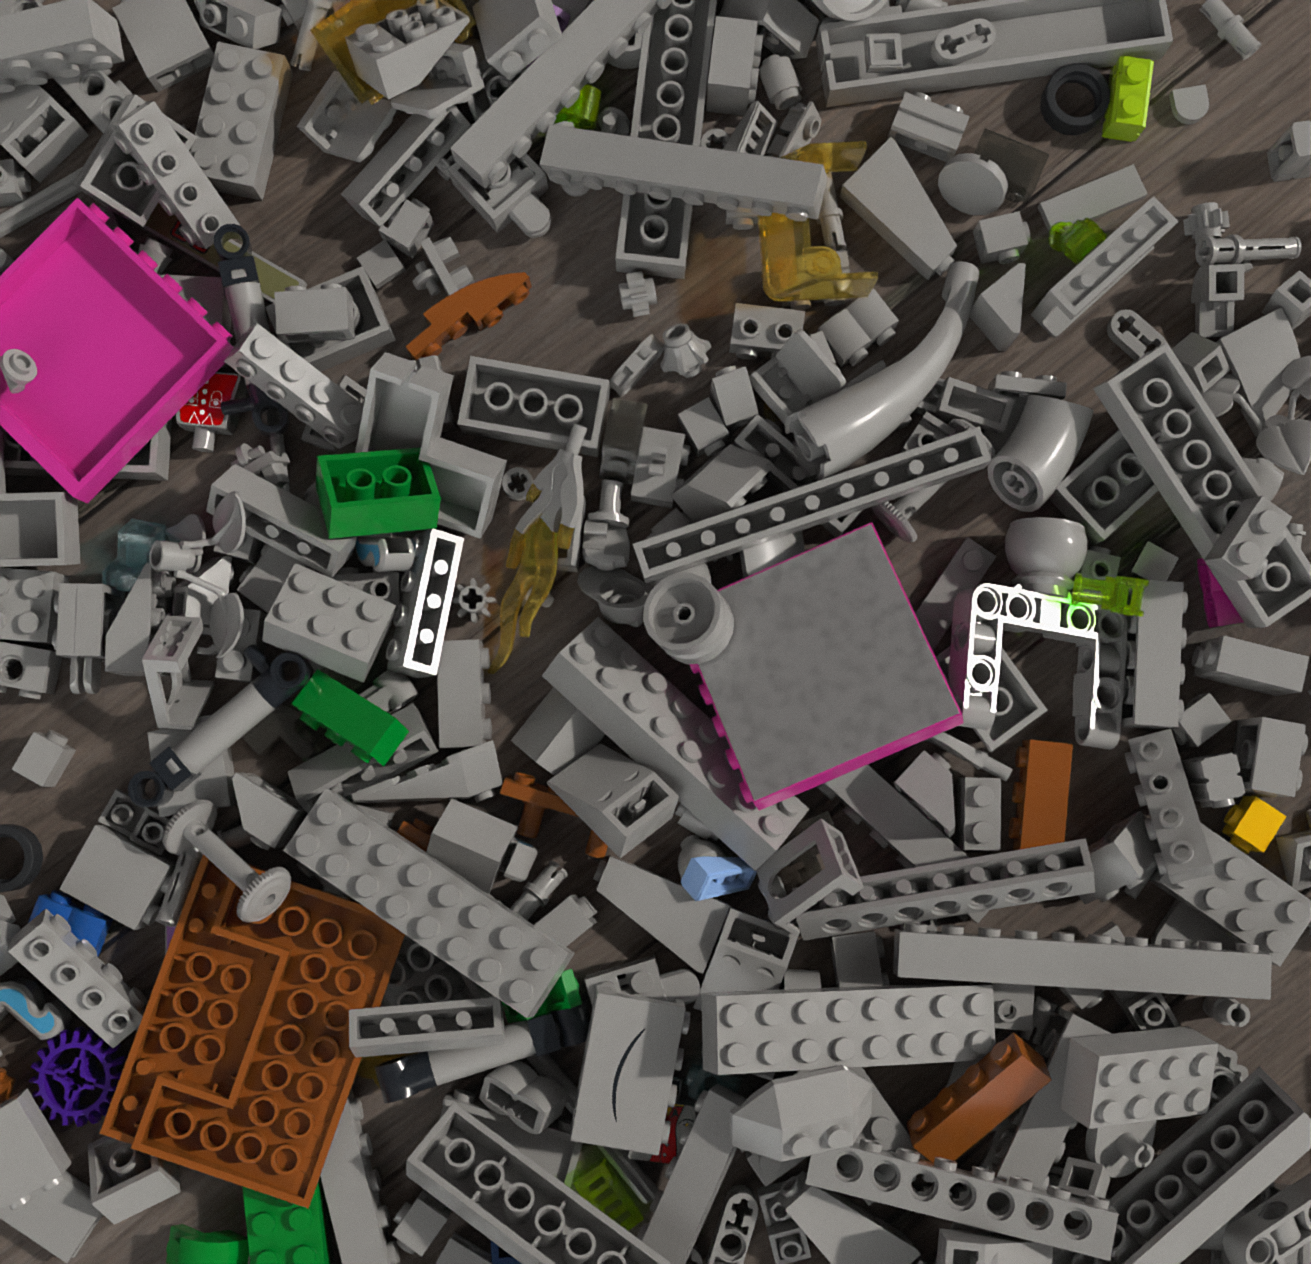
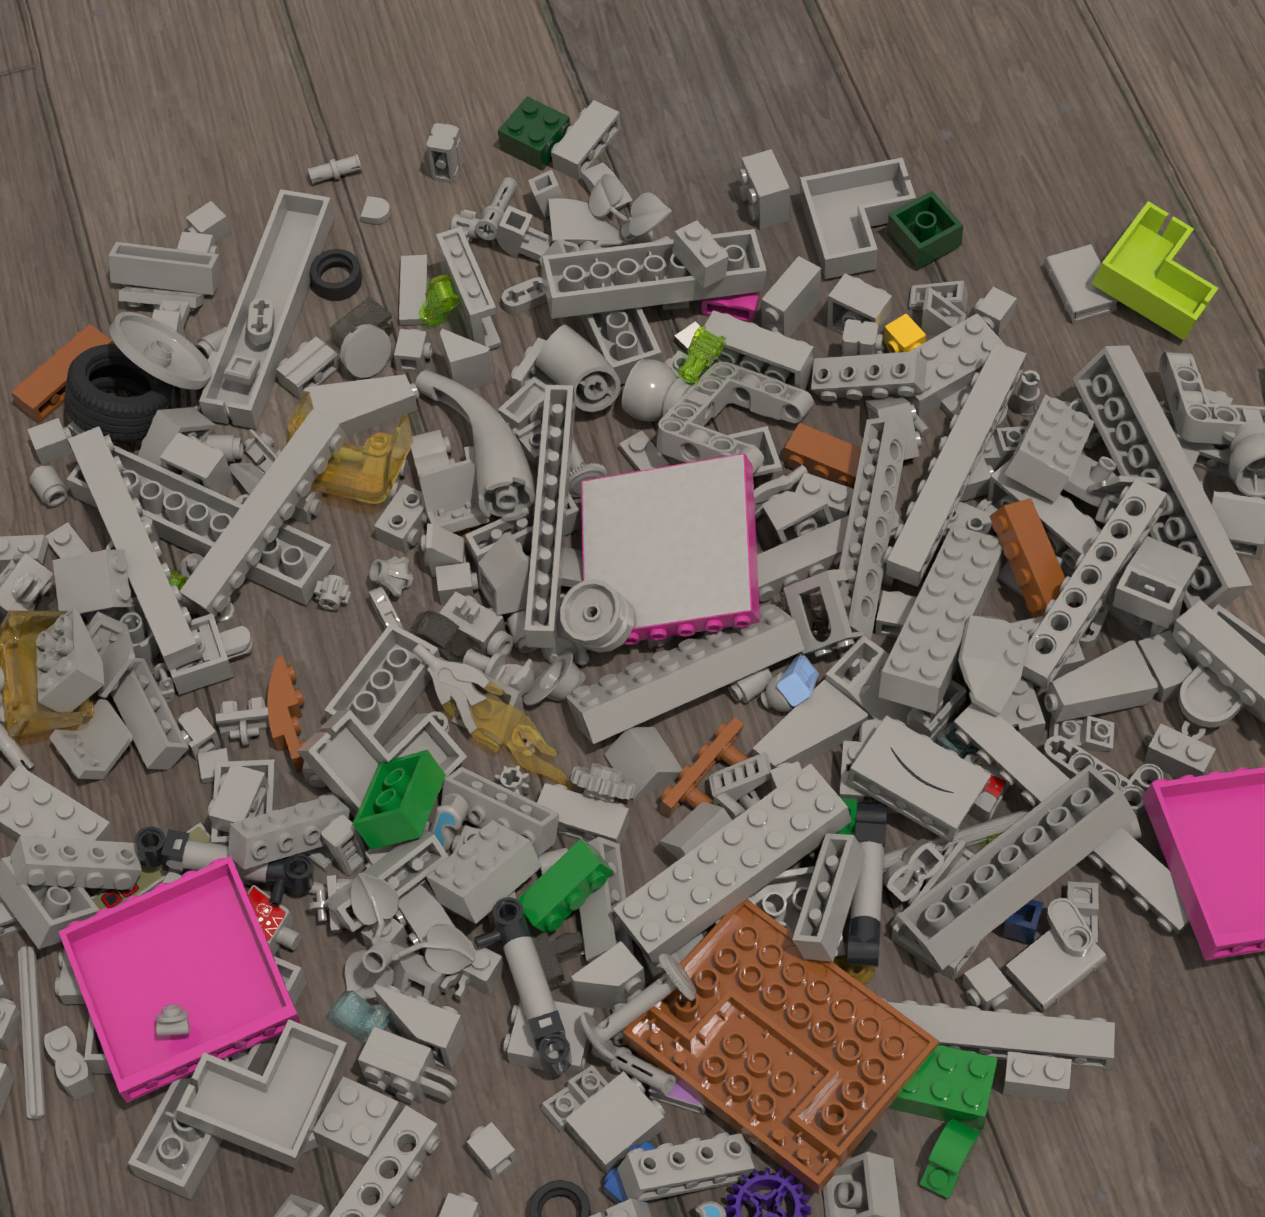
camera: 65 degrees left, 25 degrees down
(170, 654) = (449, 987): light grey panel -> none
(317, 442) = (343, 842): none -> light grey slope
(457, 777) = (645, 829): light grey wedge -> none
(502, 704) = (602, 782): none -> light grey gear
(558, 837) = (733, 779): none -> light grey slope
(615, 797) = (708, 721): light grey slope -> none
(642, 513) = (500, 642): none -> light grey tile
(1117, 1187) = (1117, 484): none -> light grey piece
(1129, 98) = (356, 239): lime brick -> none
(1200, 721) = (818, 338): light grey brick -> none

